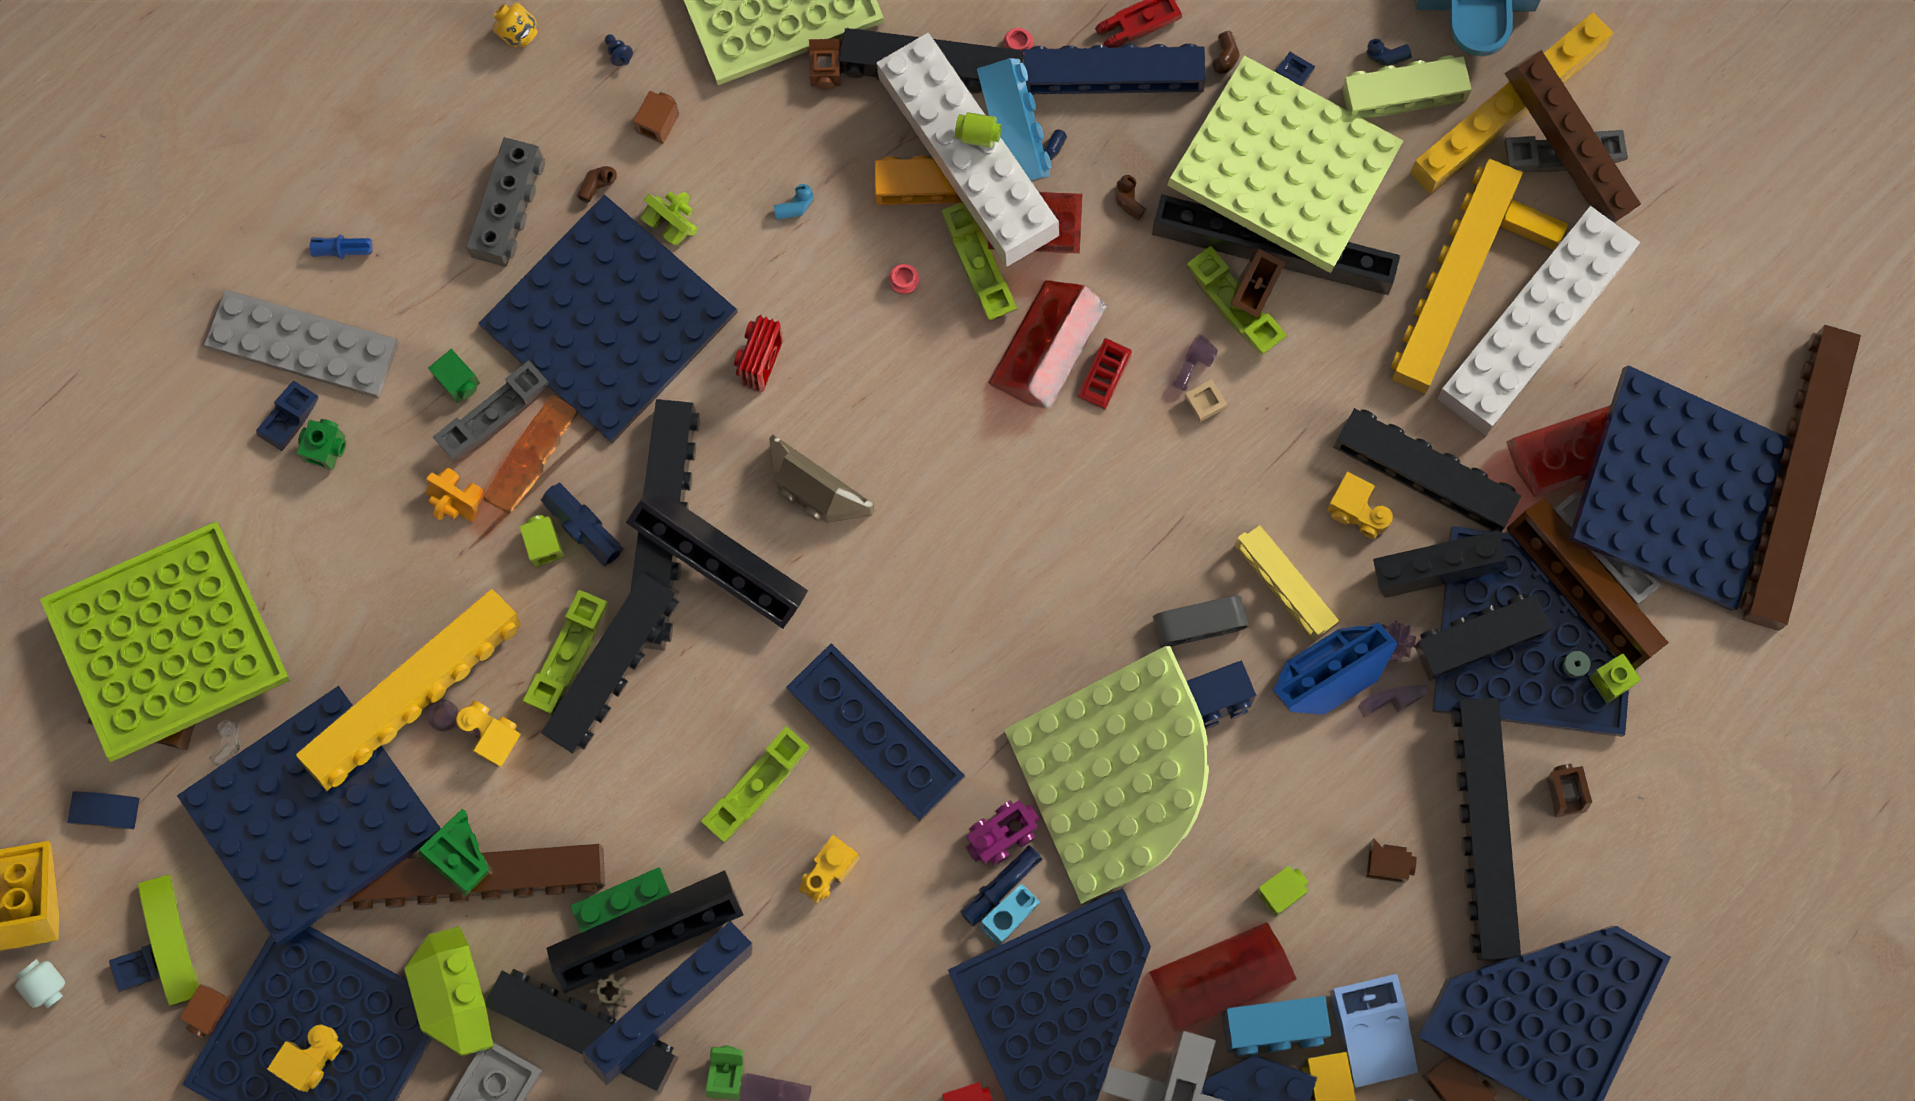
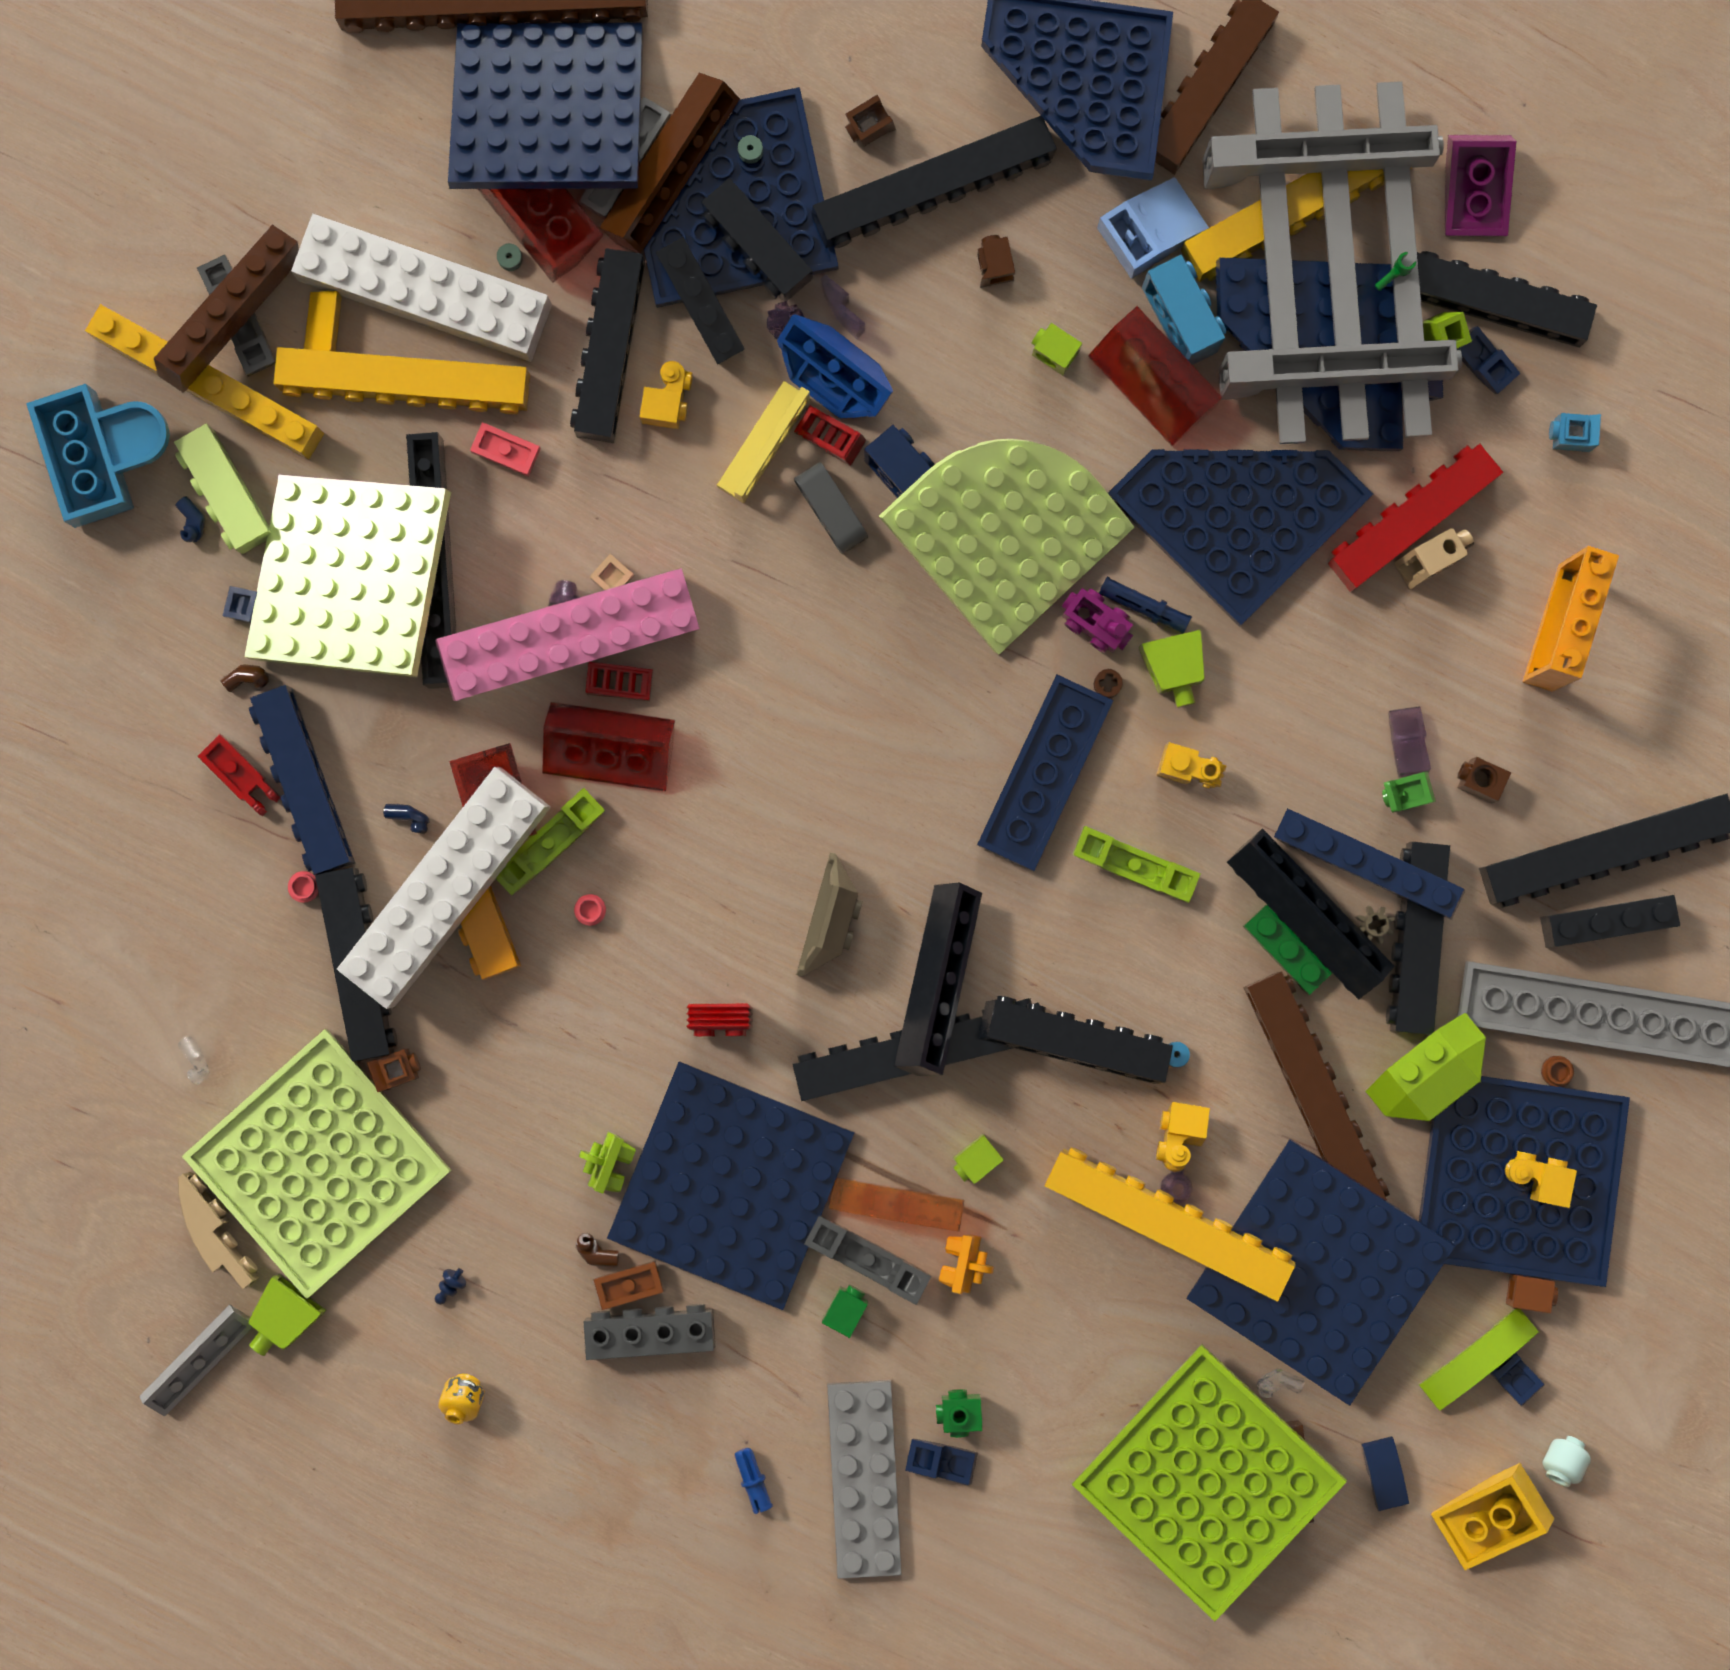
camera: 110 degrees left, 10 degrees up
(456, 854) = (1308, 1114): green wing -> none
(555, 199) = (628, 1285): none -> dark orange plate
(564, 767) = (1183, 1057): none -> dark azure piece
(567, 653) = (1077, 1092): lime slope -> none
(581, 524) = (947, 1127): dark blue piece -> none
(656, 116) = (507, 1217): dark orange brick -> none
(797, 206) = (550, 1042): dark azure arm -> none
(930, 827) = (1101, 676): none -> reddish brown bush
(931, 892) = (1175, 665): none -> lime torso
(978, 129) = (429, 876): lime brick -> none
(1009, 915) = (1169, 586): medium azure leg -> none
(1013, 106) = (390, 858): dark azure brick -> none
(1126, 197) = (430, 724): reddish brown arm -> none
(1161, 334) = (567, 634): none -> bright pink brick
(1219, 286) = (505, 578): lime slope -> none
(1256, 659) = (851, 449): none -> red slope
(1257, 282) = (479, 565): reddish brown slope -> none
(1359, 345) = (505, 449): none -> coral plate
(1544, 405) = (509, 250): none -> sand green piece
(1615, 678) = (753, 108): lime brick -> none

